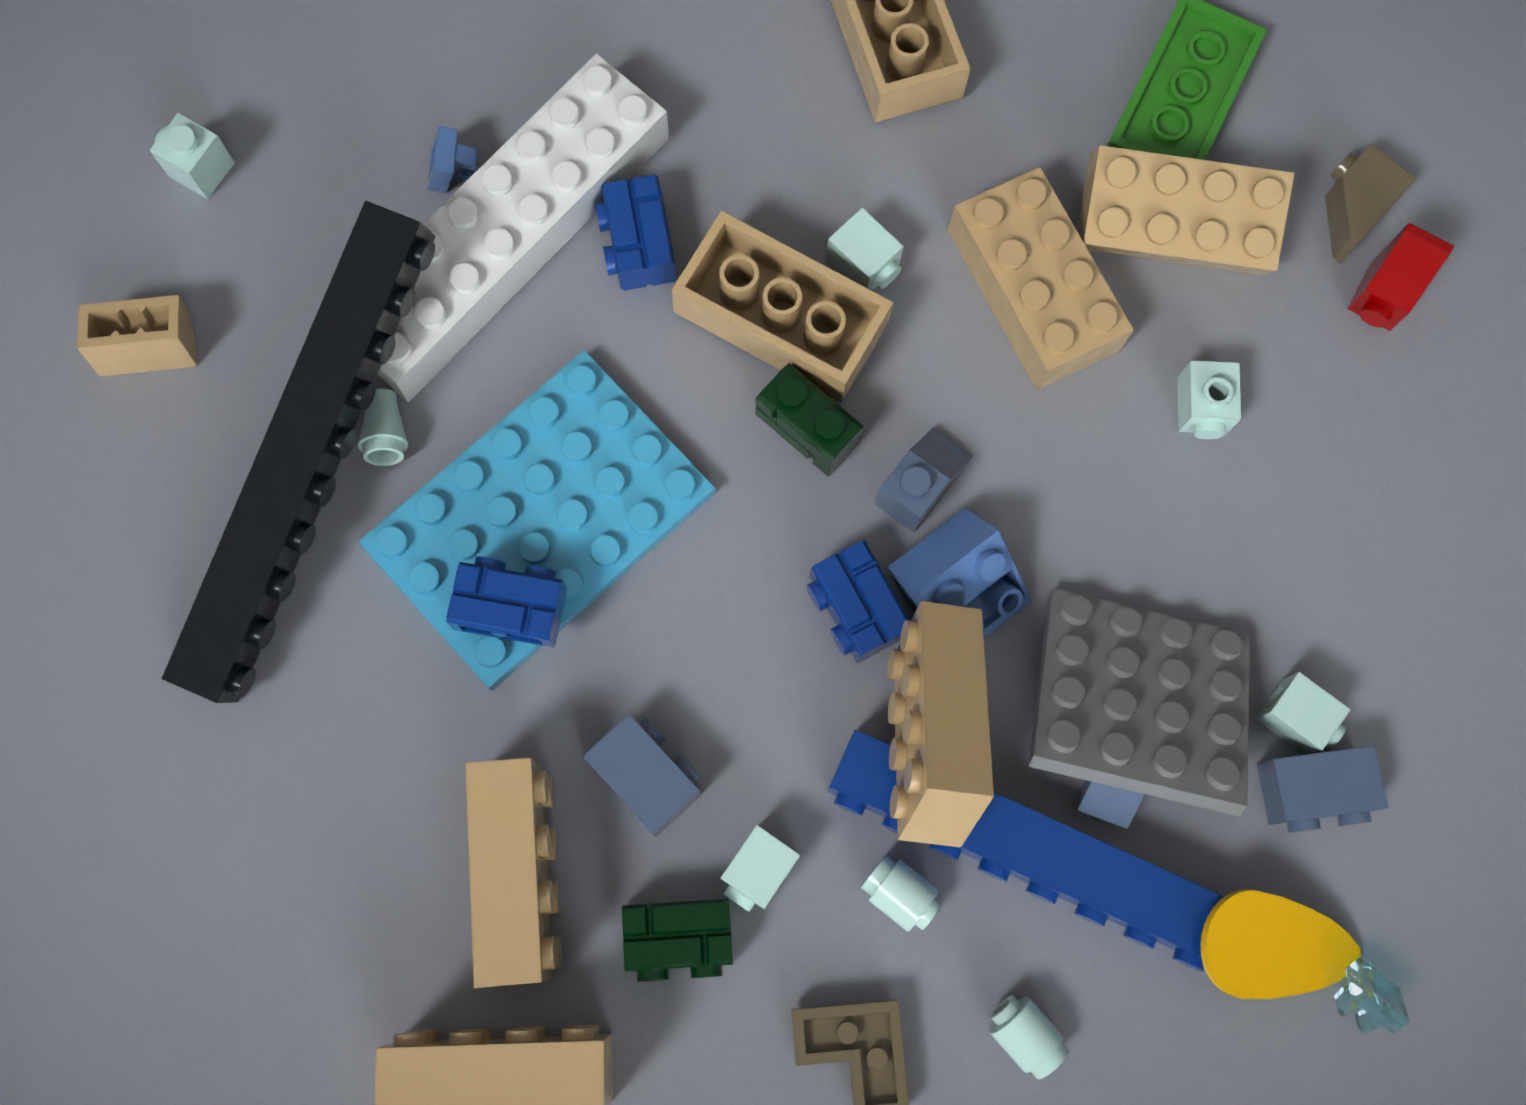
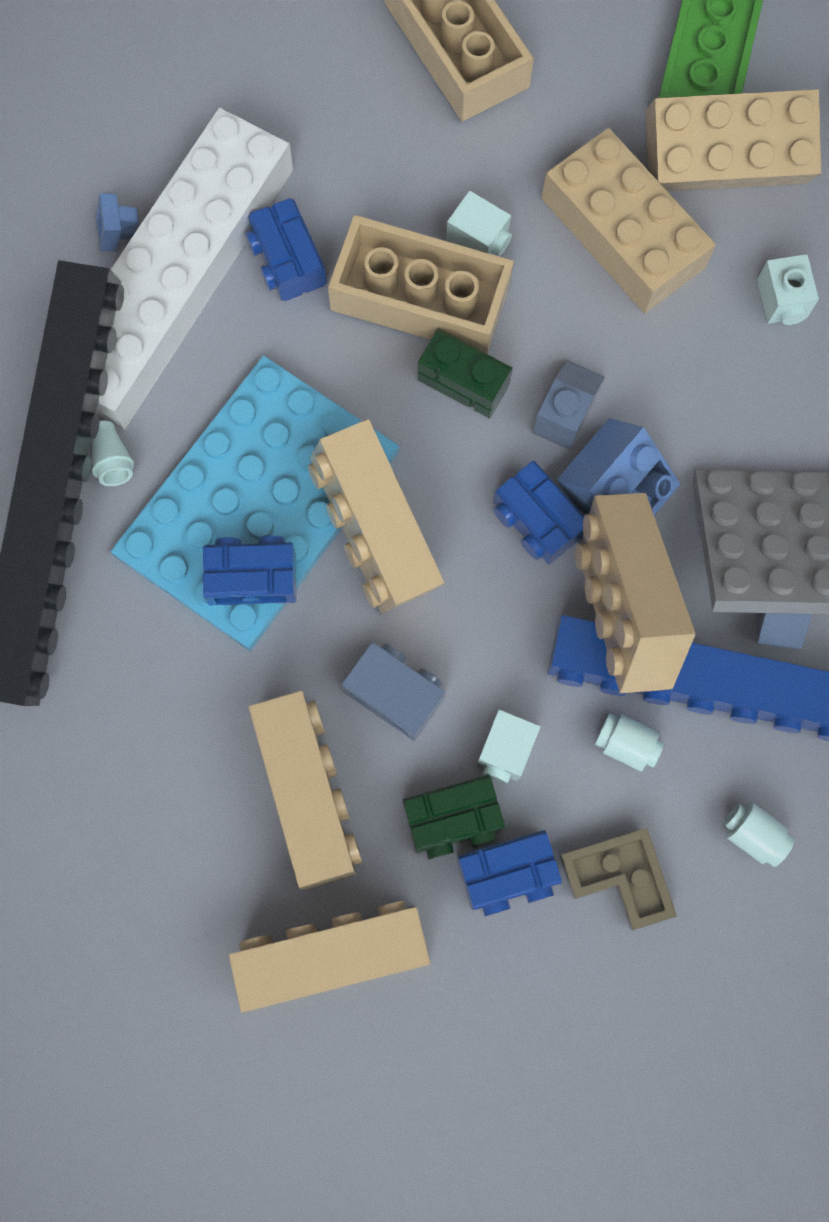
camera: 10 degrees left, 0 degrees up
(662, 570) = (373, 517): none -> tan brick
(726, 1017) = (509, 871): none -> blue brick

